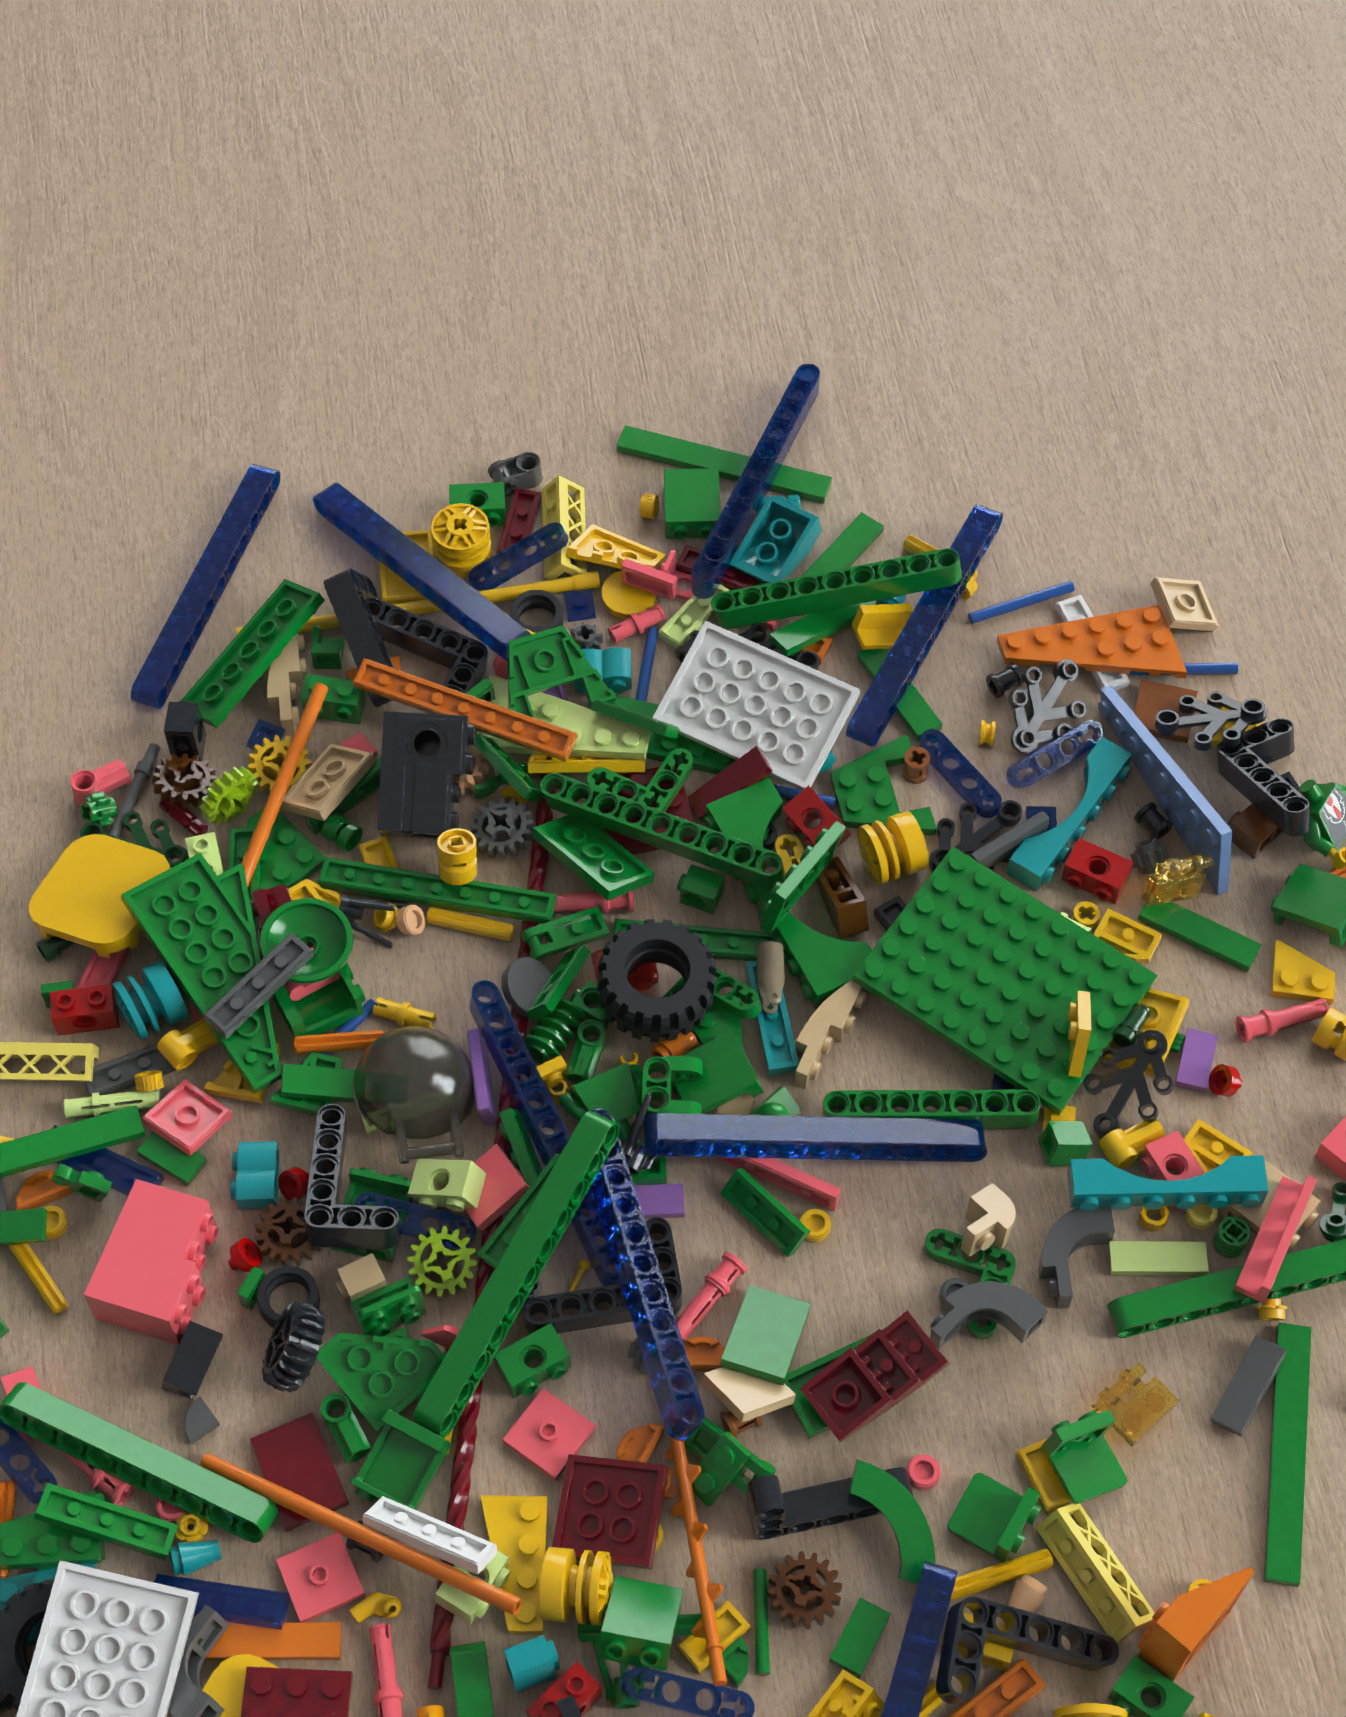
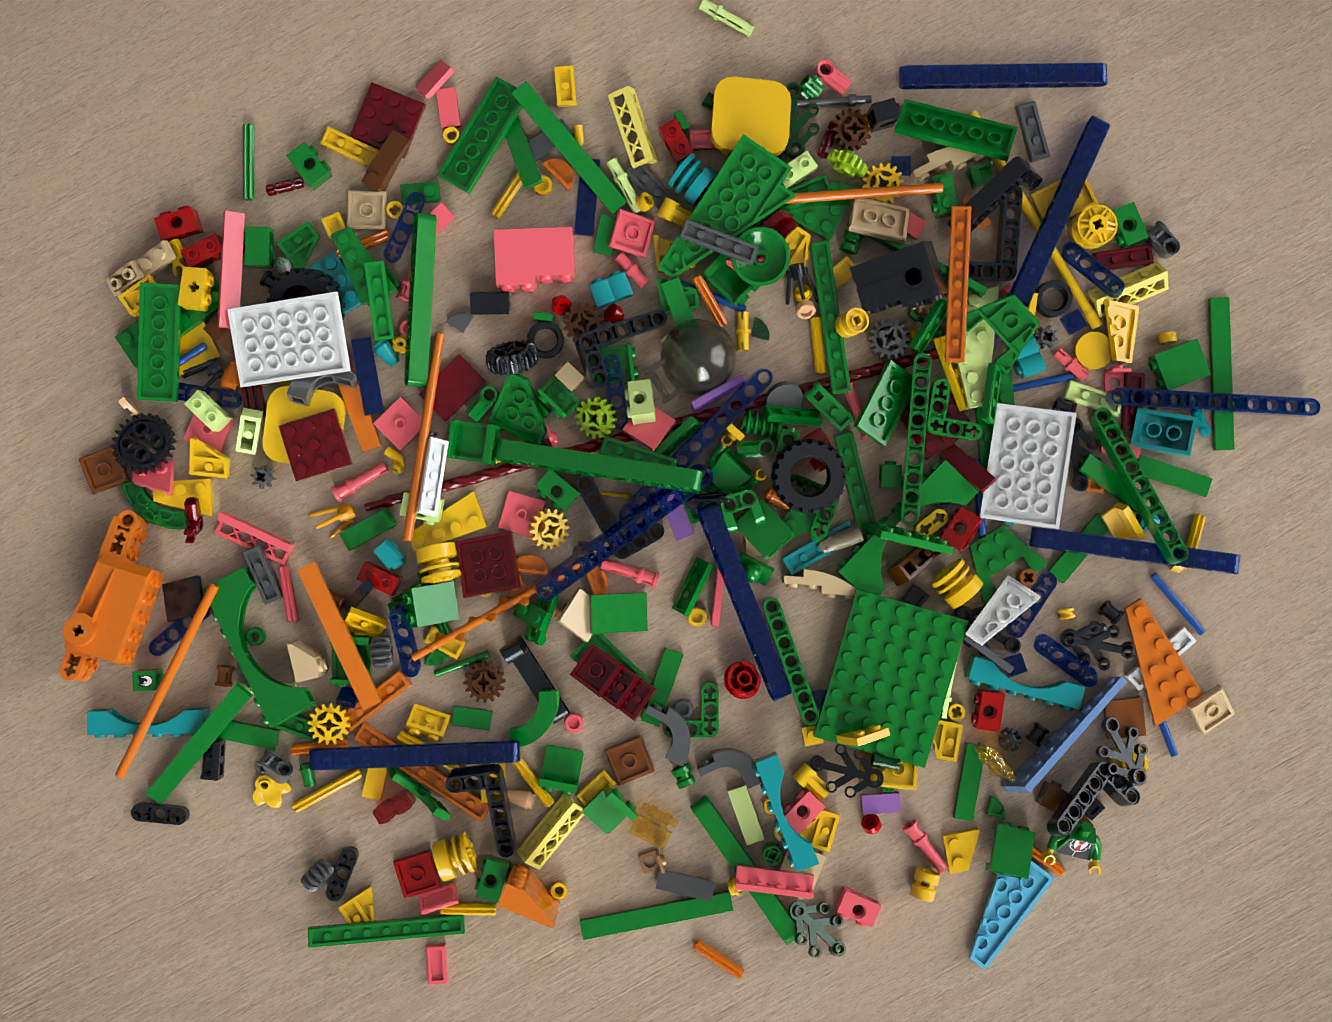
camera: 70 degrees right, 30 degrees up
(88, 1184) = (569, 197): green plate -> none
(246, 1133) = (631, 270): none -> coral pin
(305, 573) = (1032, 131): none -> dark grey tile
(412, 992) = (760, 330): none -> clear green tile
(589, 1395) = (540, 528): none -> yellow gear
(649, 579) = (1104, 361): coral tile -> none
(893, 1301) = (664, 682): none -> green tile
(938, 1185) = (742, 680): none -> red cone
(951, 803) = (1004, 606): none -> white wing
(990, 1218) = (733, 718): tan brick -> none
(1014, 1406) = (629, 760): none -> dark orange tile
(1064, 1142) = (797, 743): green panel -> none
(1065, 1327) = (683, 776): none -> green wheel
(1195, 1412) = (659, 858): none -> medium nougat bracket
(1249, 911) = (995, 808): none -> green tile

